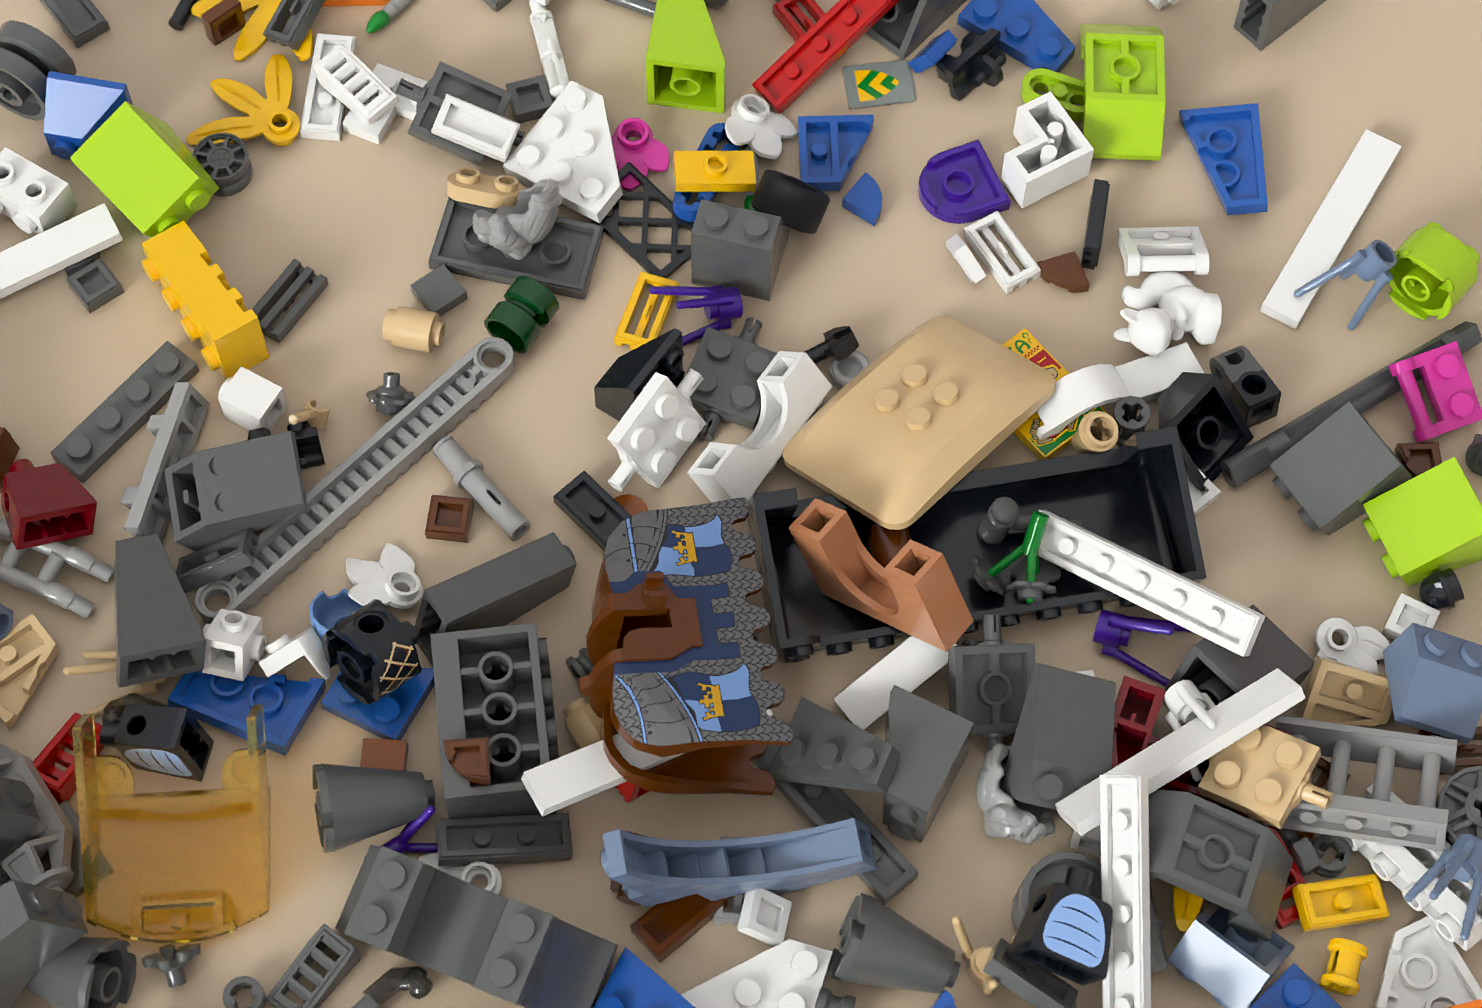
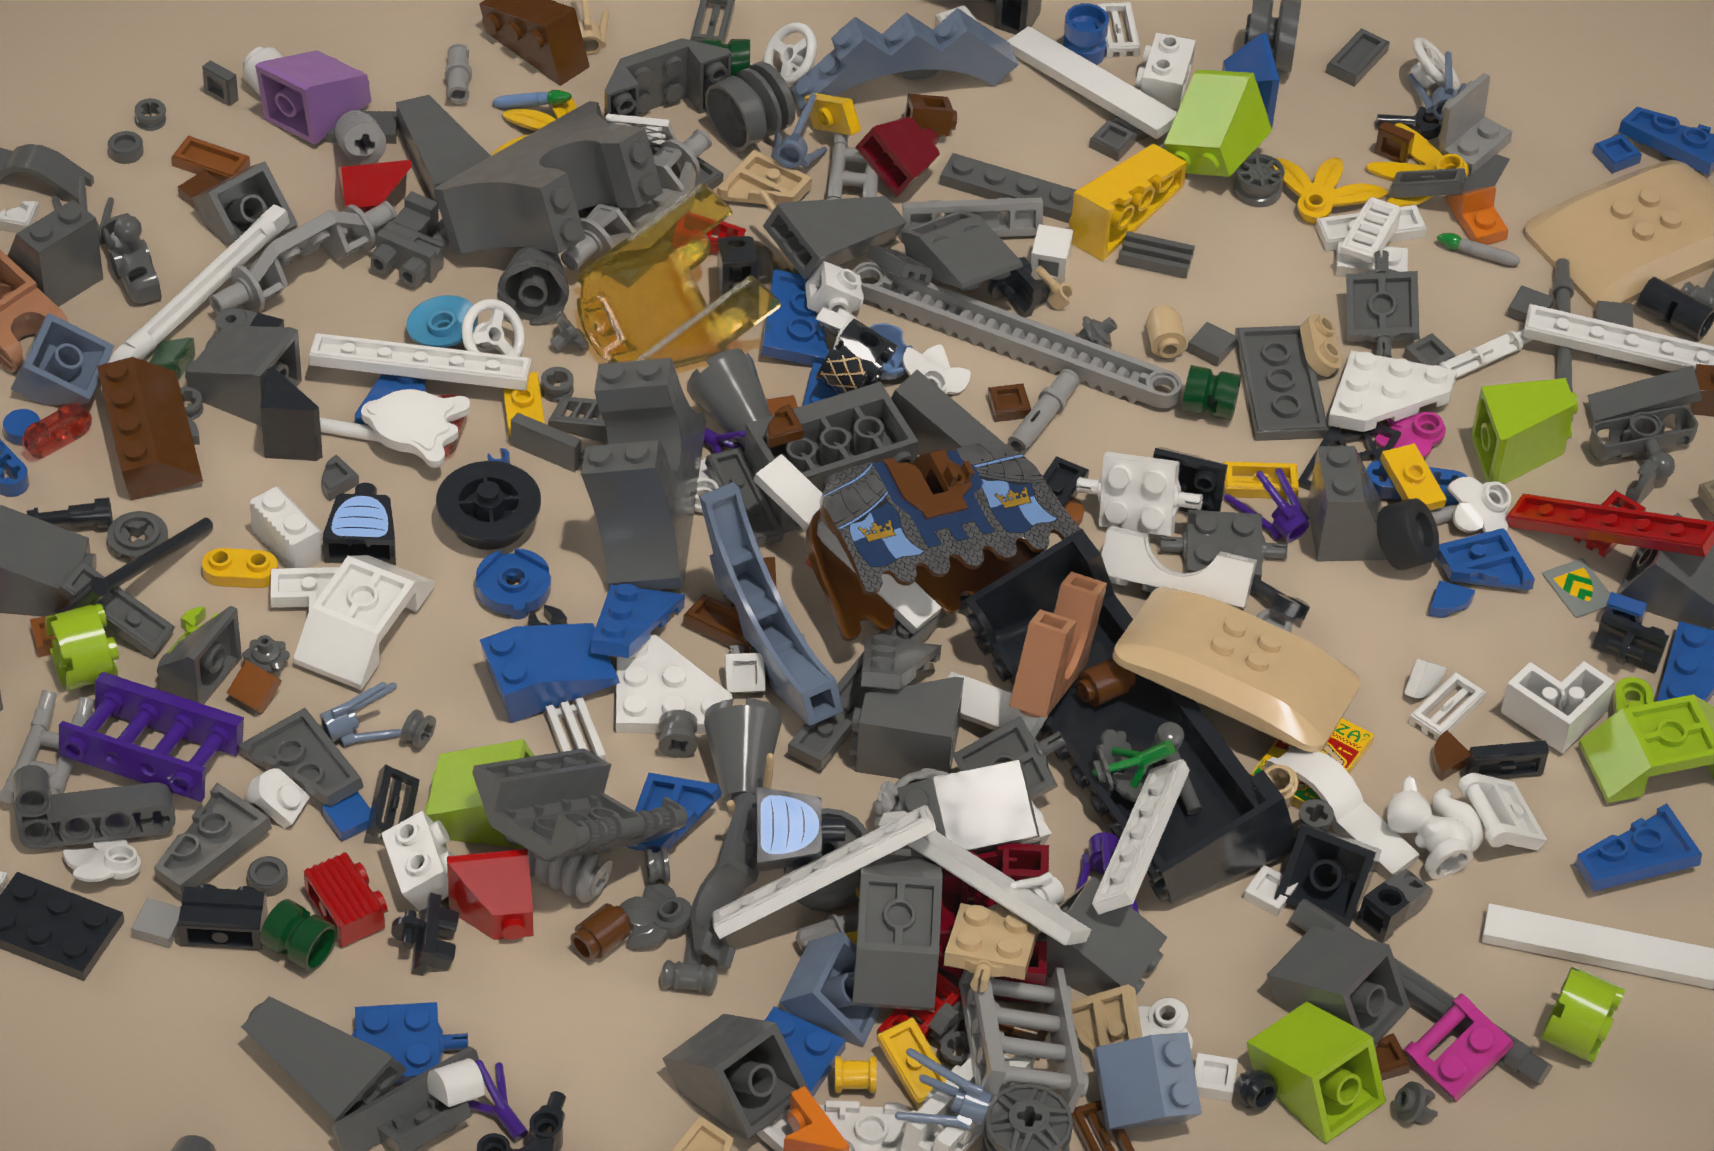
camera: 70 degrees right, 15 degrees down
(475, 128) = (1369, 315): white tile -> none
(520, 226) = (1292, 364): light grey hair -> none
(961, 185) = (1496, 658): dark purple tile -> none
(1369, 265) = (1556, 952): sand blue plant -> none

